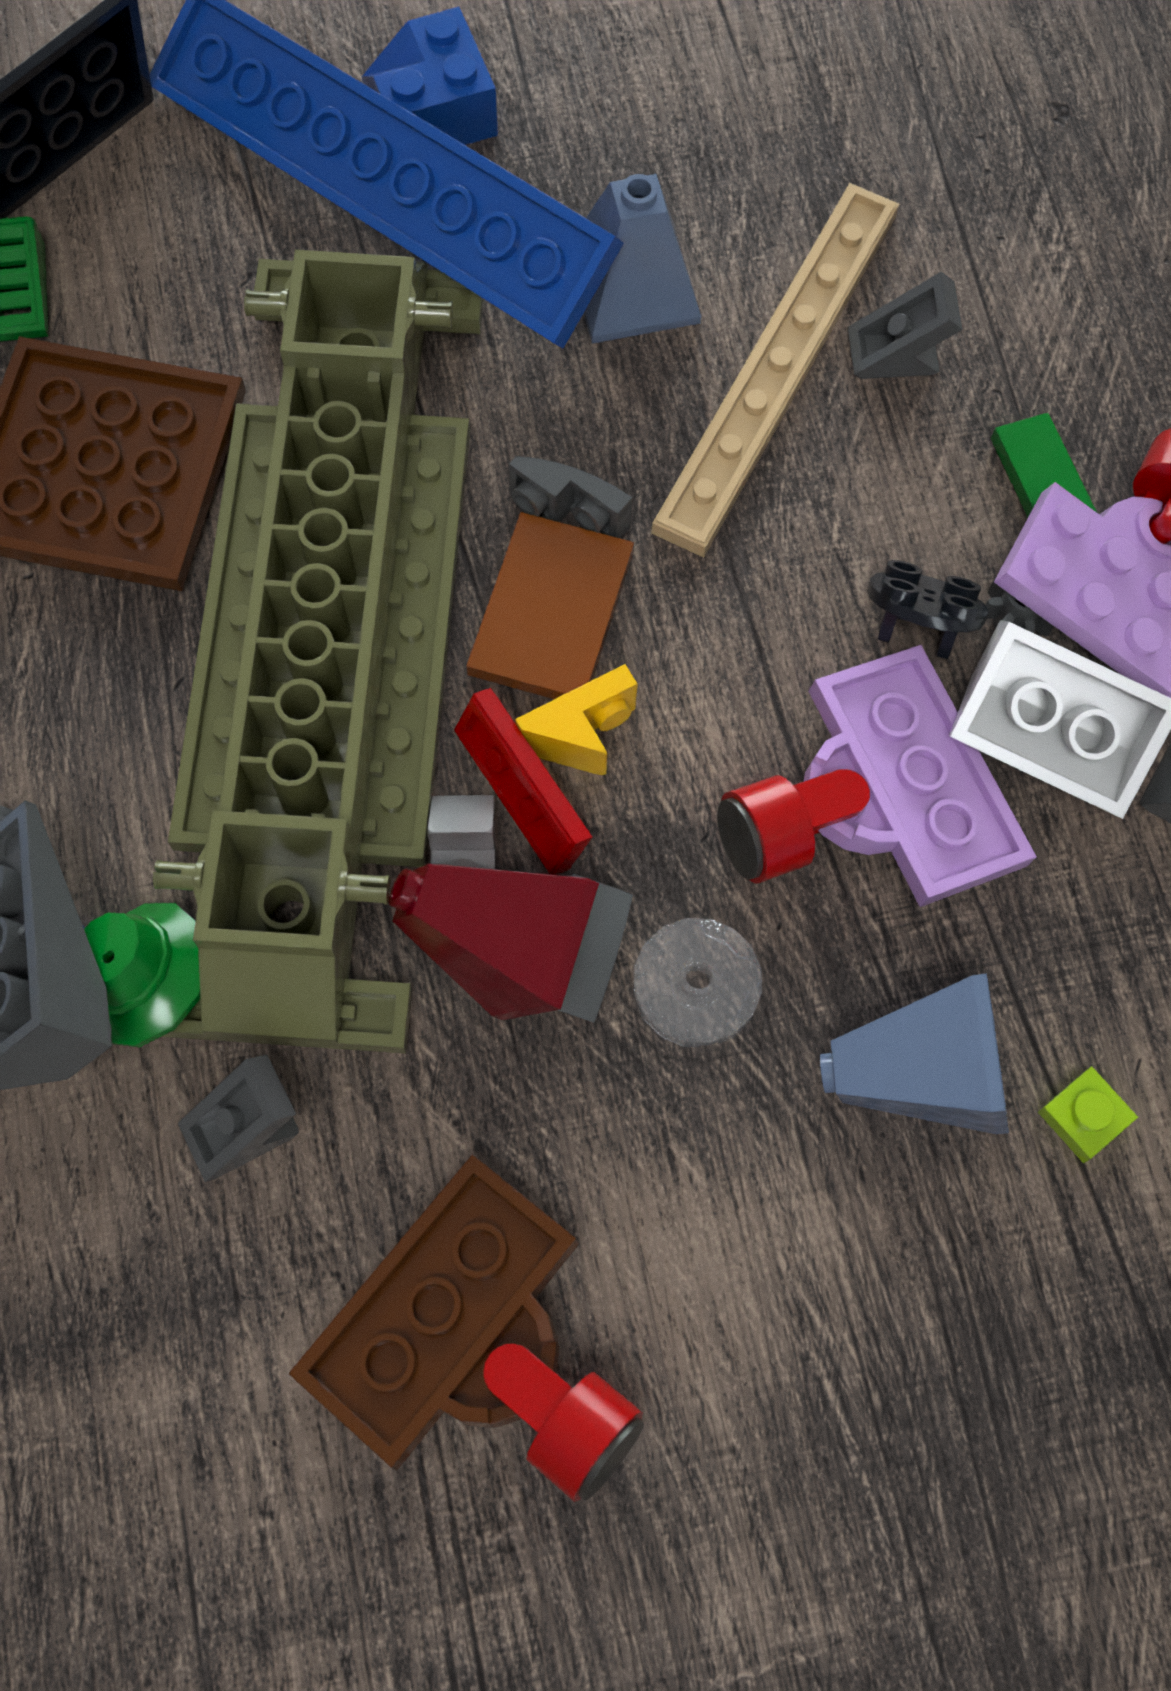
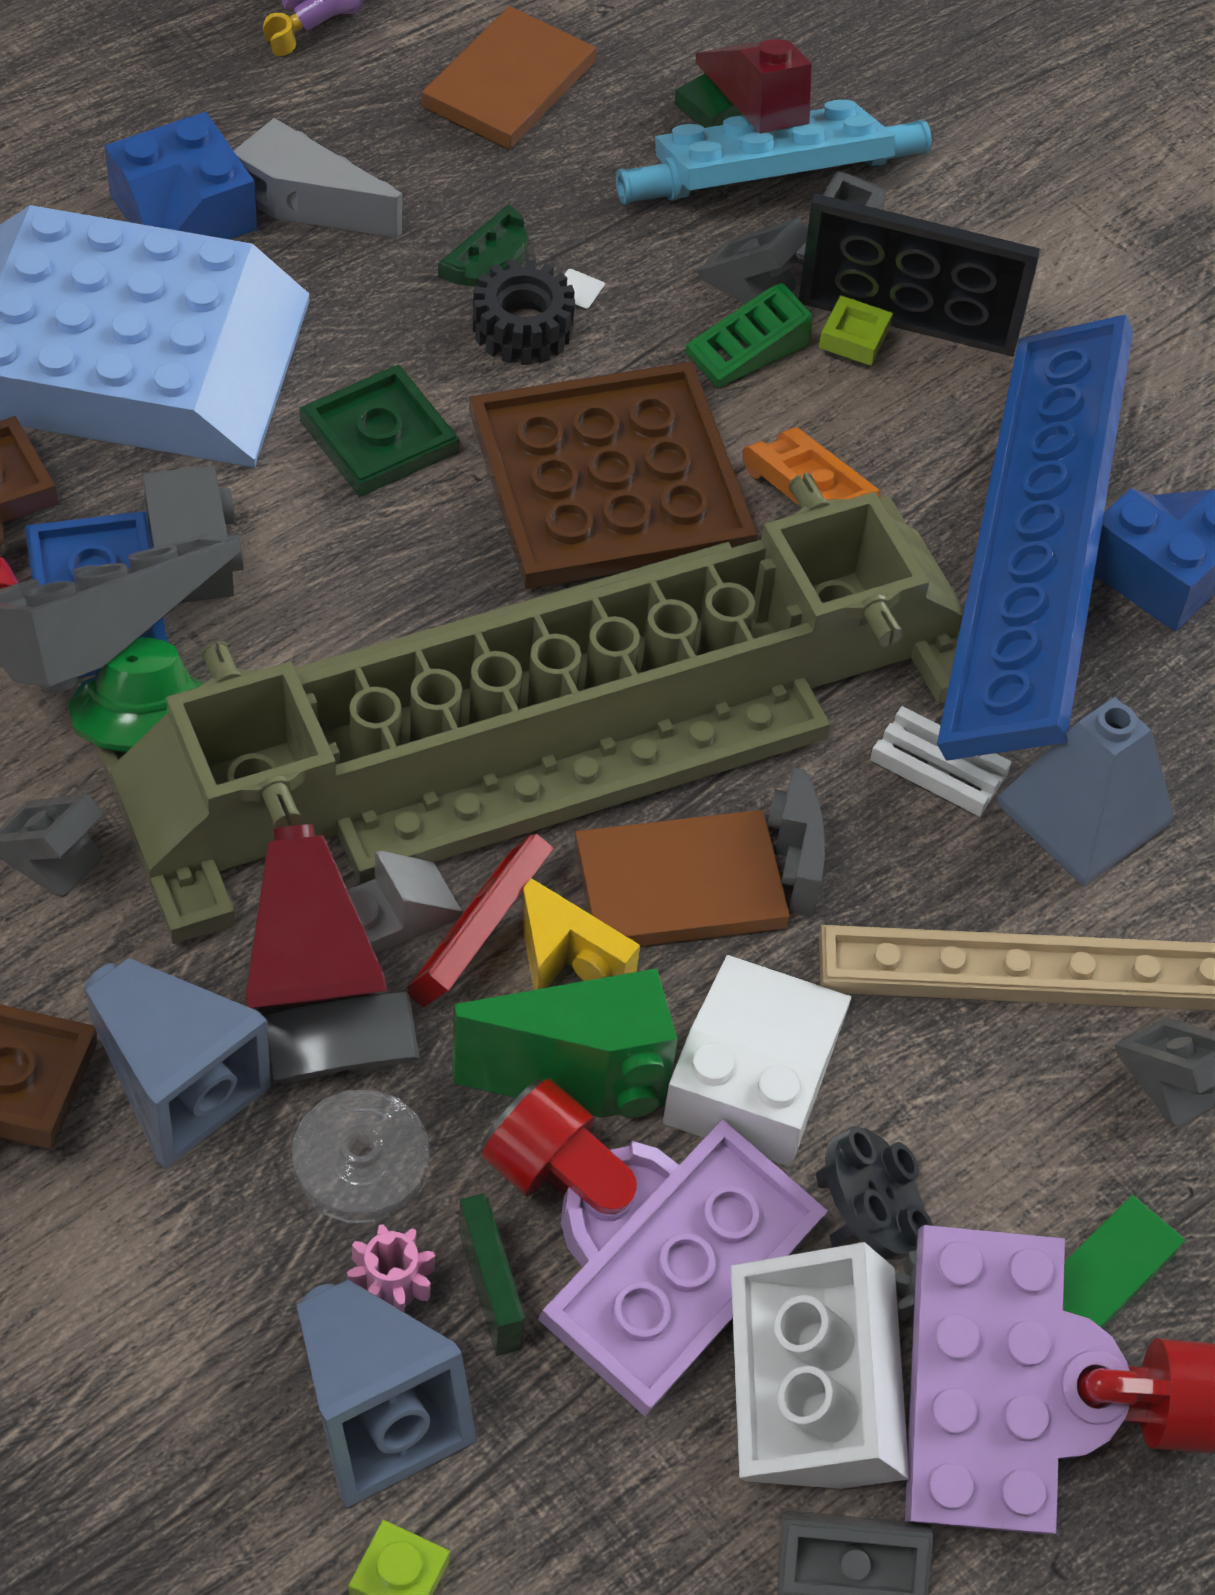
camera: 60 degrees right, 15 degrees down
(60, 196) = (855, 330): none -> lime plate
(203, 305) = (799, 454): none -> orange plate
(529, 354) = (920, 738): none -> white tile
(542, 1096) = (178, 1053): none -> sand blue slope
(713, 732) = (595, 1038): none -> green slope
(754, 628) = (756, 1057): none -> white slope
(826, 986) = (399, 1267): none -> bright pink gear
(865, 925) = (491, 1274): none -> dark green tile

